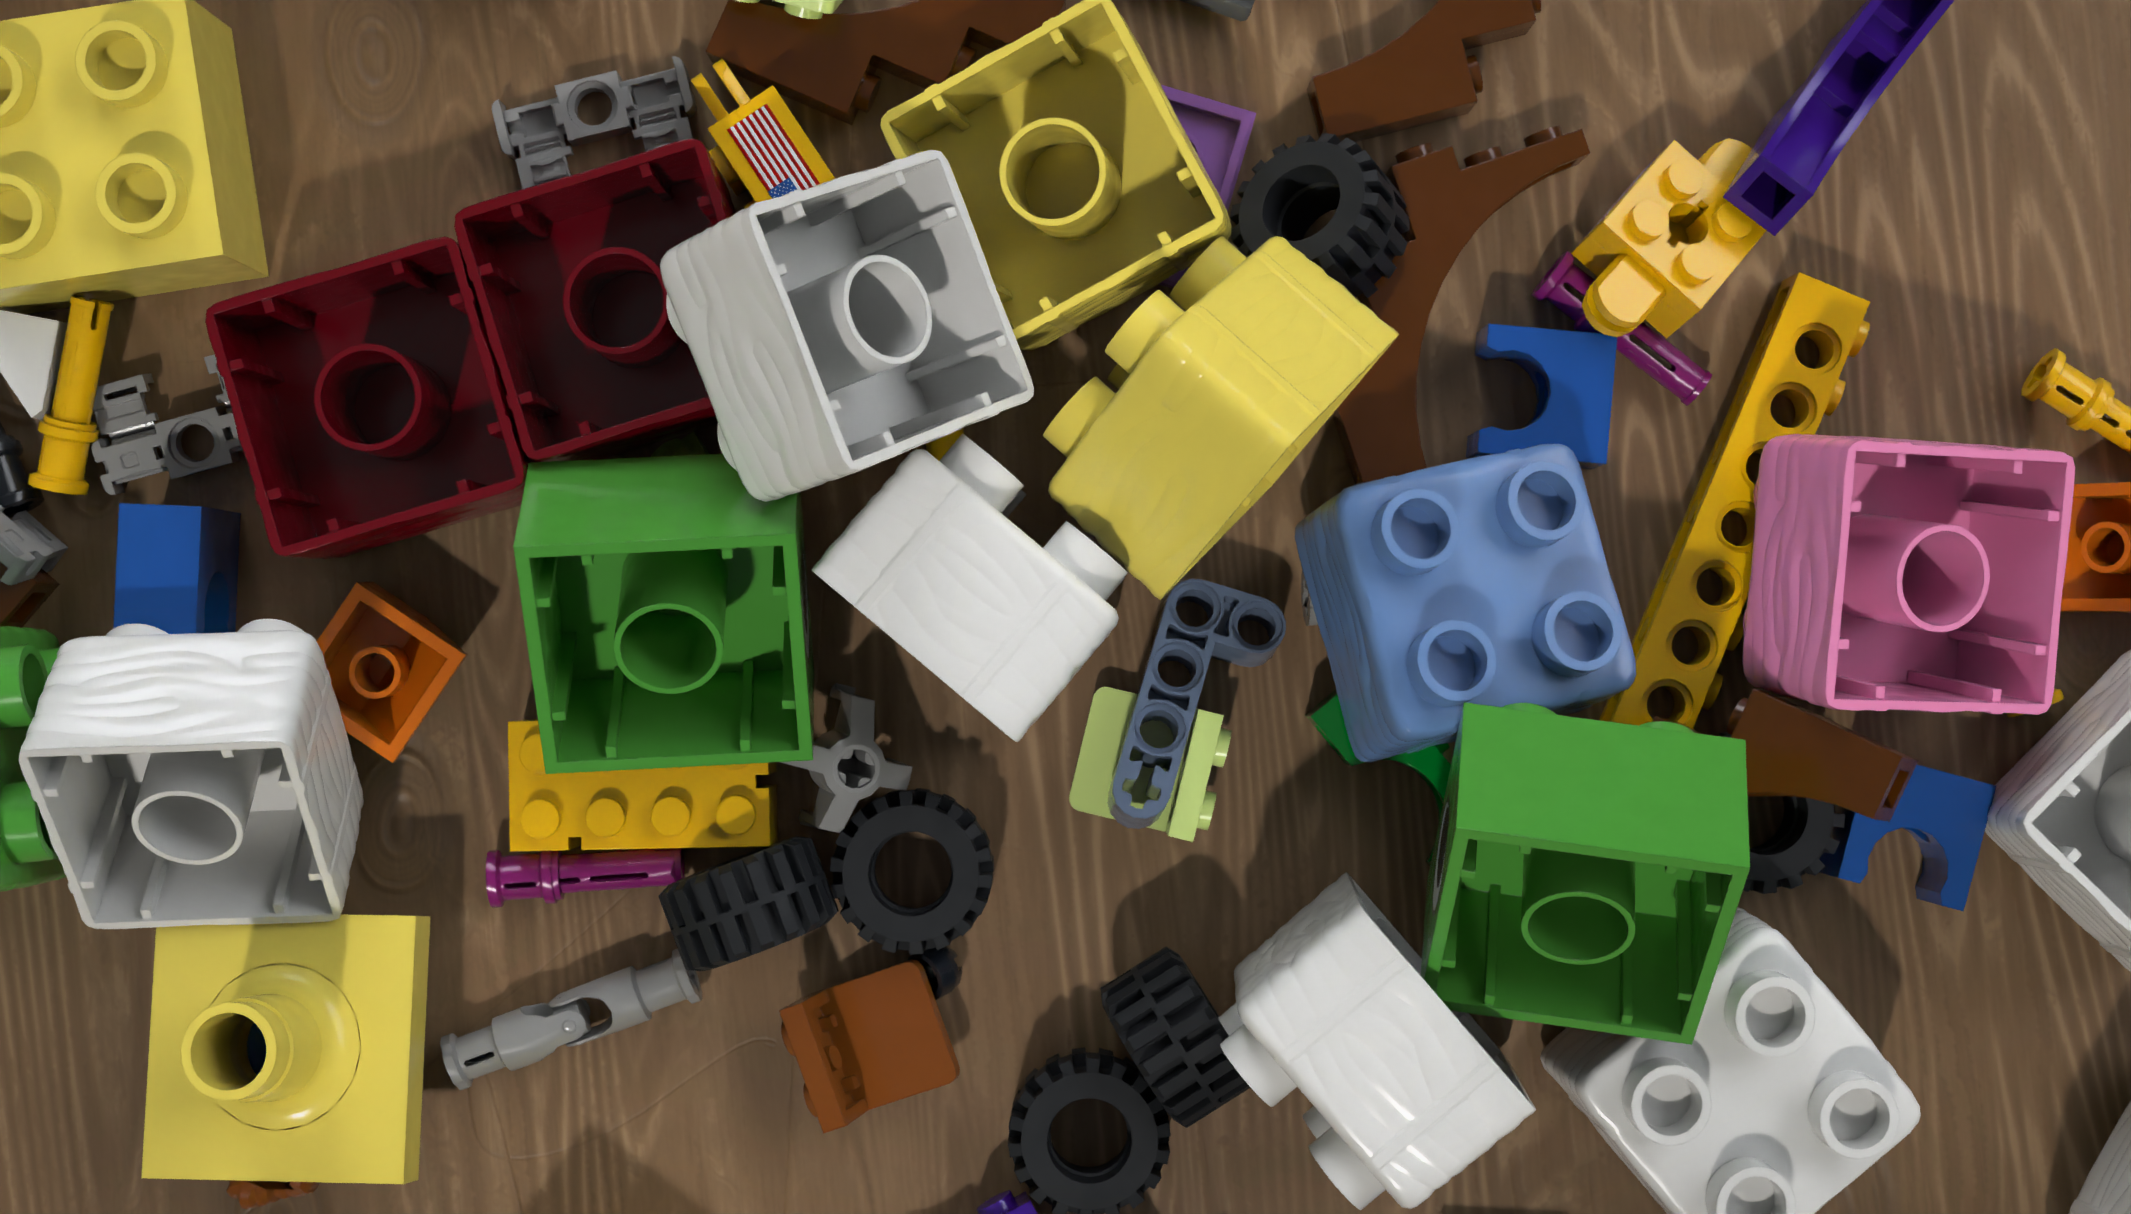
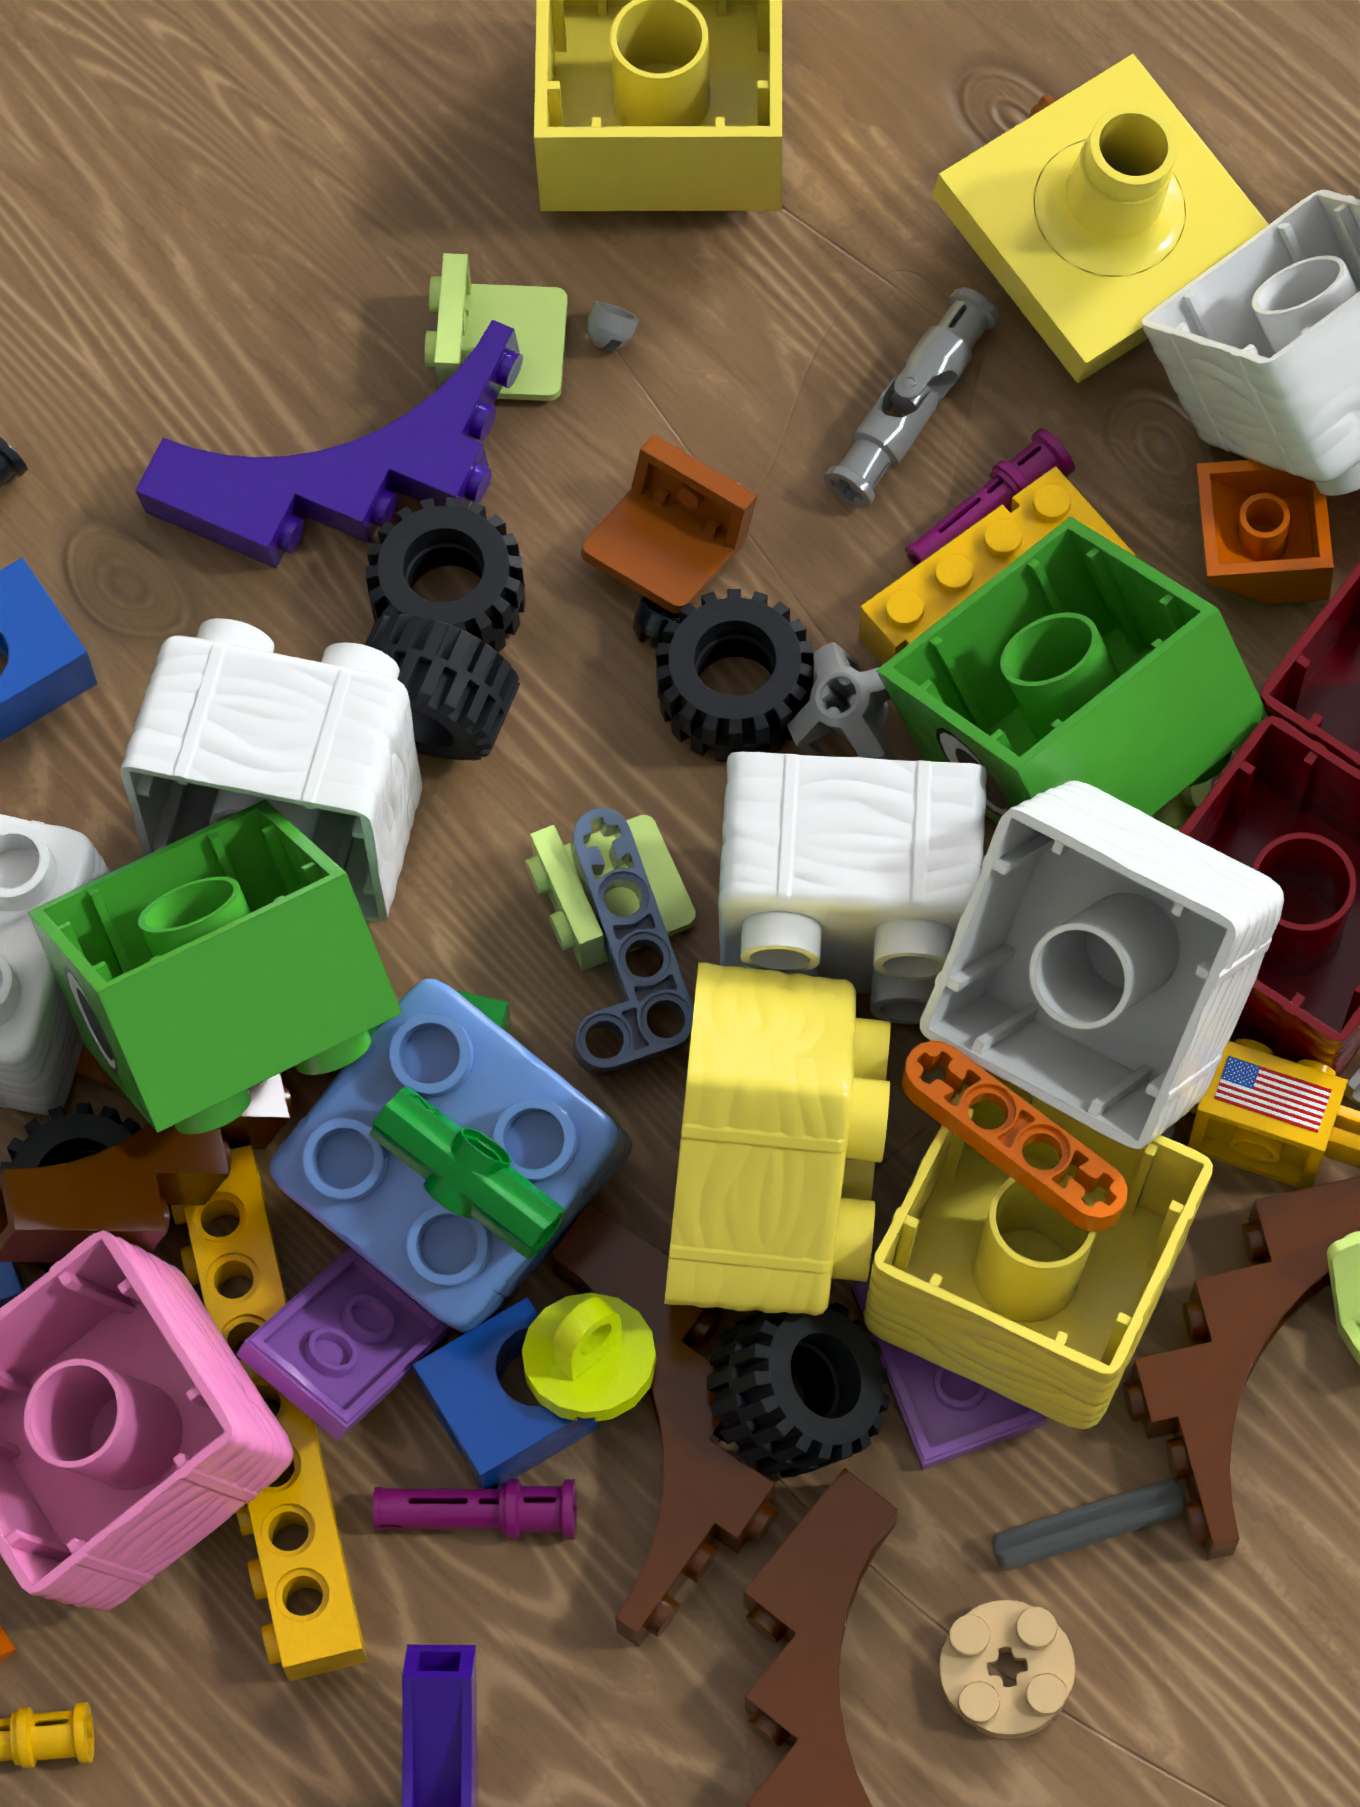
camera: 150 degrees right, 20 degrees down
(748, 904) = (842, 552): black tyre -> none
(1020, 250) = (1005, 1144): none -> orange beam
(1468, 363) = (589, 1357): none -> neon yellow tile
(1498, 535) = (467, 1172): none -> green piece
(1667, 241) = (496, 1589): yellow brick -> none
(1667, 516) = (343, 1343): none -> medium lavender tile

